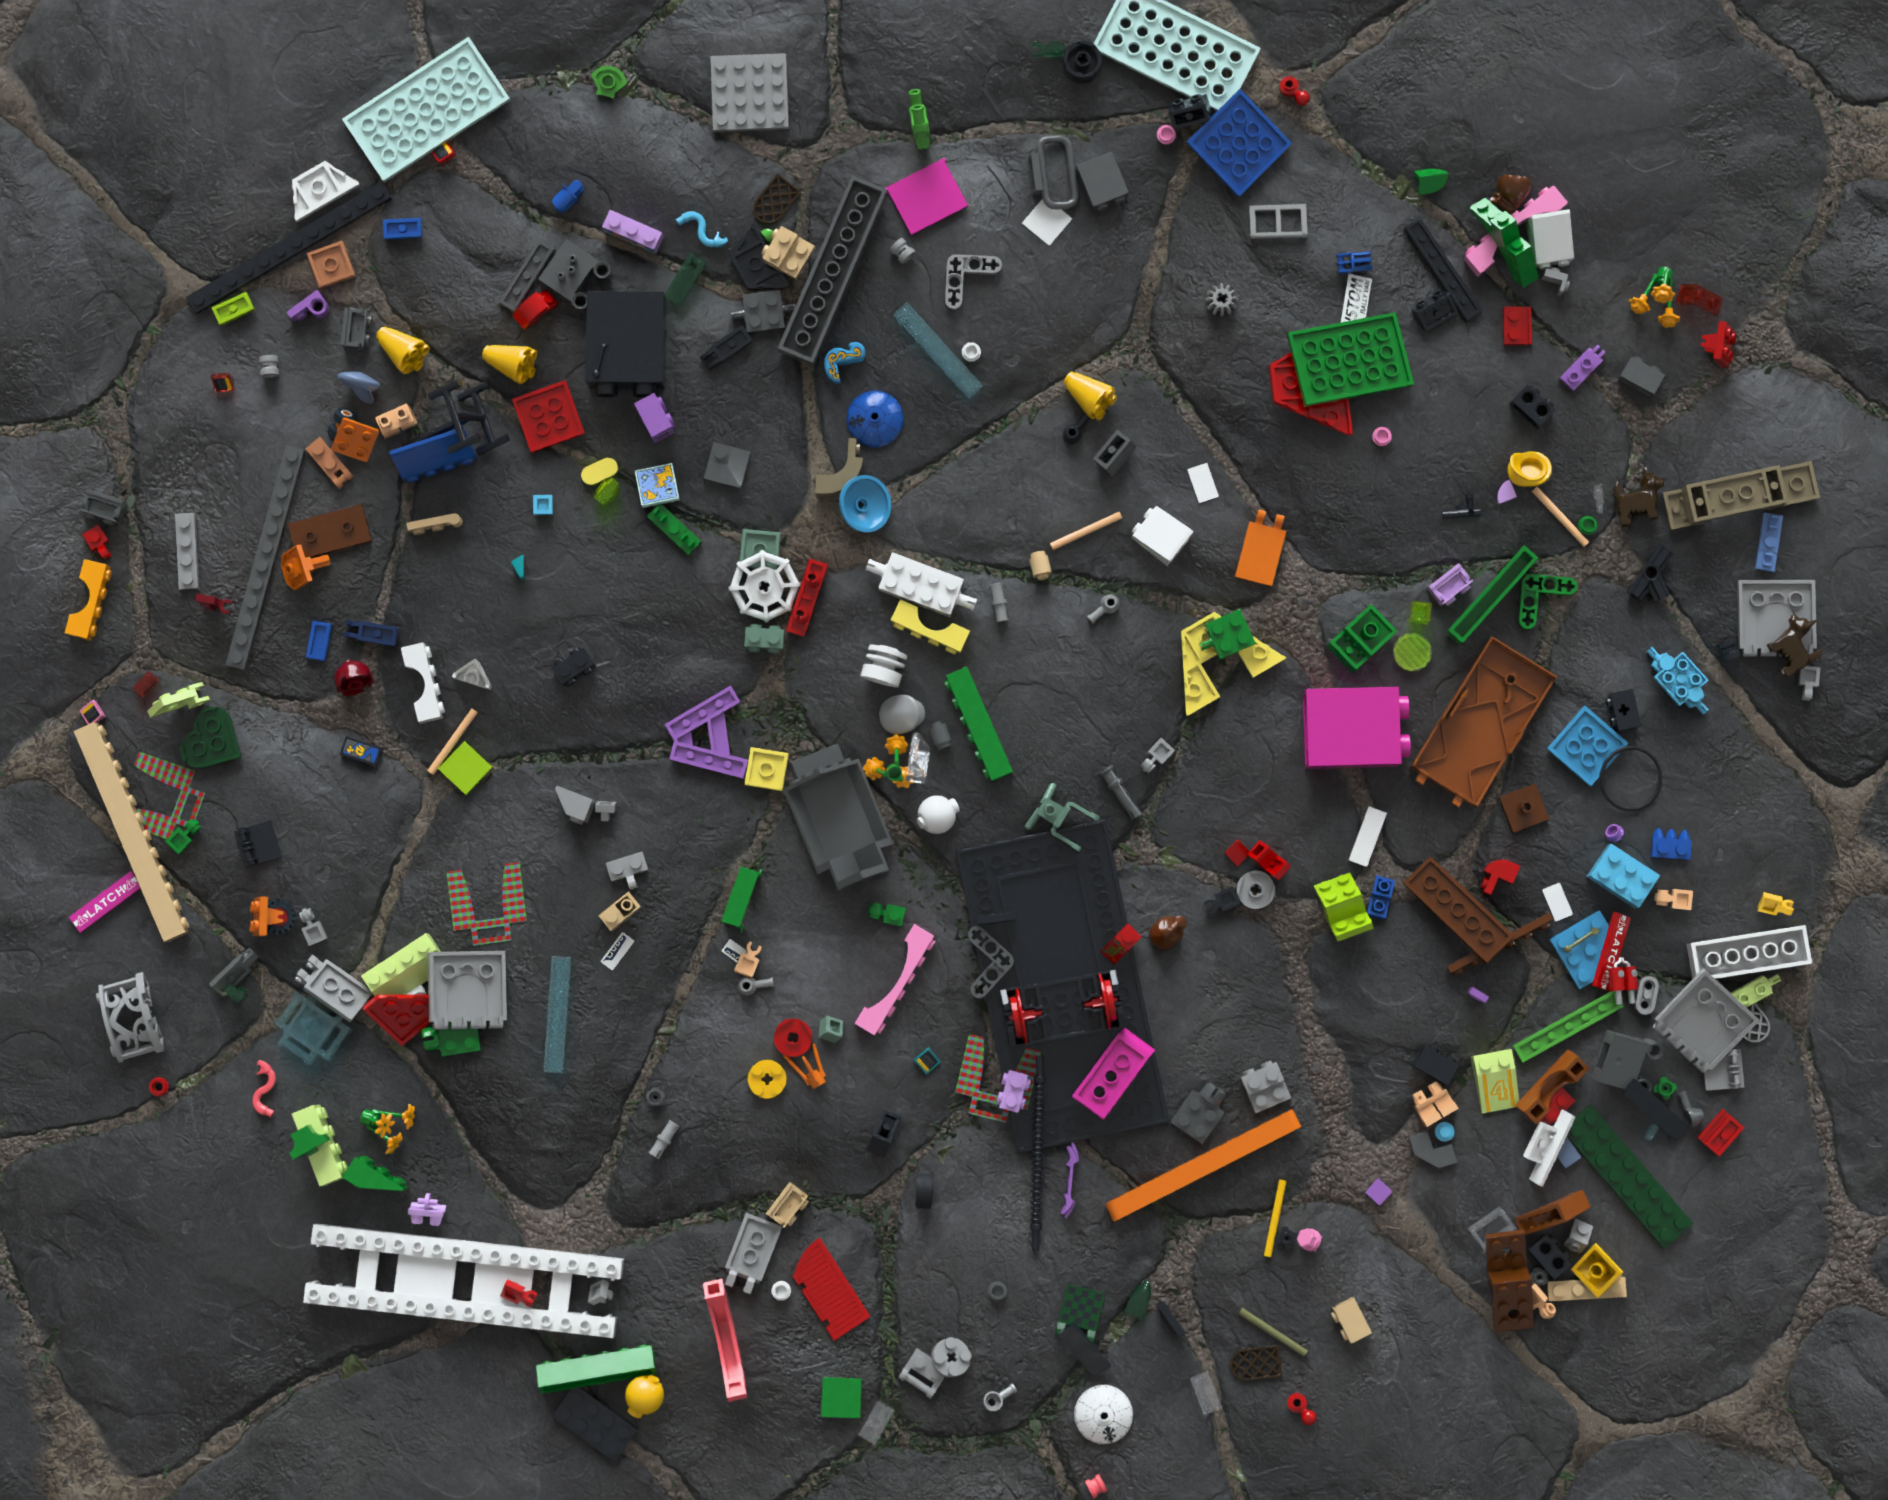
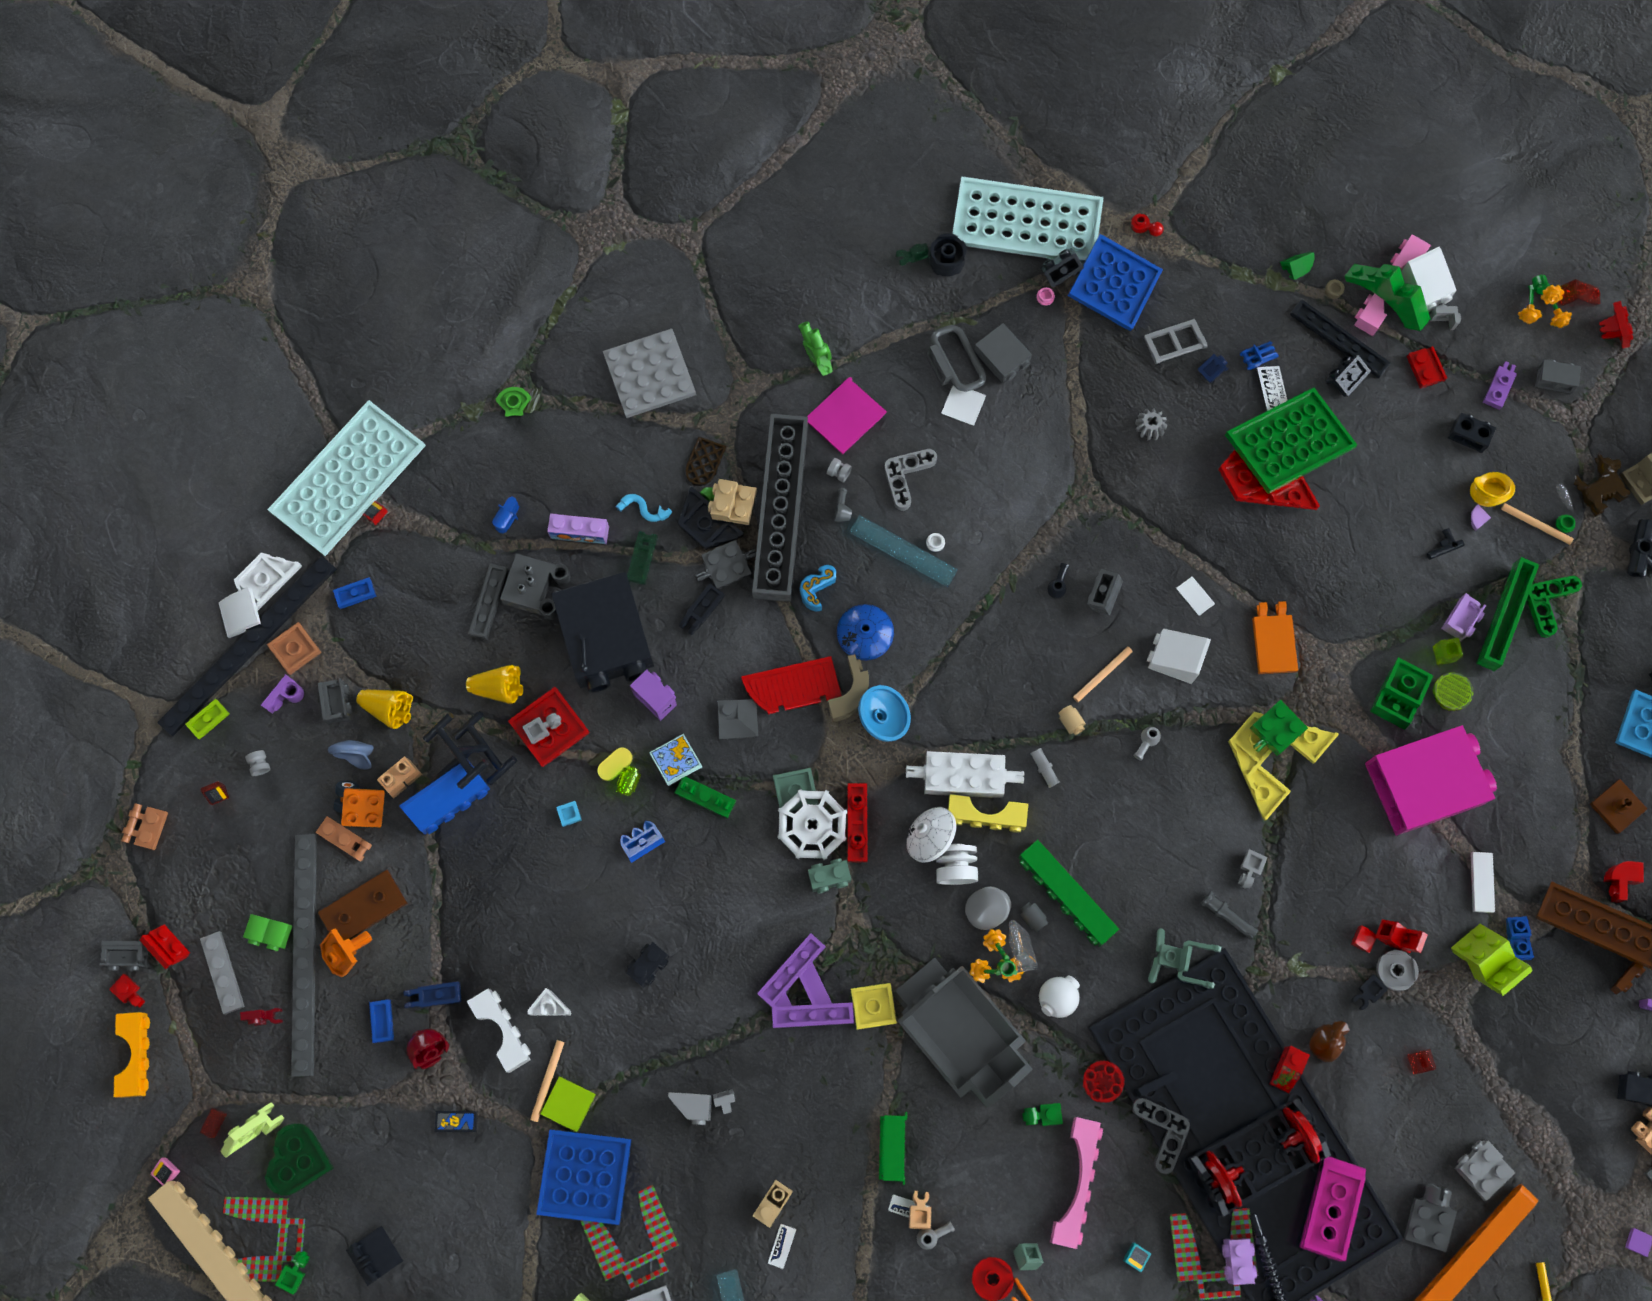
camera: 20 degrees left, 10 degrees down
(142, 511) = (164, 946): none -> red plate
(154, 396) = (150, 827): none -> nougat plate
(238, 527) = (267, 931): none -> bright green brick
(289, 213) = (239, 612): none -> white slope
(435, 523) = (465, 866): tan plate -> none
(461, 835) = (584, 1177): none -> blue plate
(519, 566) = (563, 881): teal slope -> none
(533, 308) = (504, 627): red brick -> none
(536, 416) = (537, 730): none -> light grey plate
(602, 552) = (641, 841): none -> blue plate
(627, 868) = (765, 1154): light grey plate -> none
(790, 449) = (793, 685): none -> red piece
(869, 630) = (931, 834): none -> white dish
(891, 294) = (842, 512): none -> dark grey bar
(951, 901) = (1103, 1081): none -> red tile
(1090, 394) = (1062, 545): yellow cone -> none
(1247, 976) = (1421, 1061): none -> clear red slope
(1304, 260) = (1213, 367): none -> dark blue bracket
(1381, 436) = (1345, 502): bright pink plate -> none
(1457, 216) = (1334, 289): none -> dark tan tile
(1482, 722) = (1547, 736): dark orange piece -> none
(1511, 192) = (1375, 250): reddish brown piece -> none

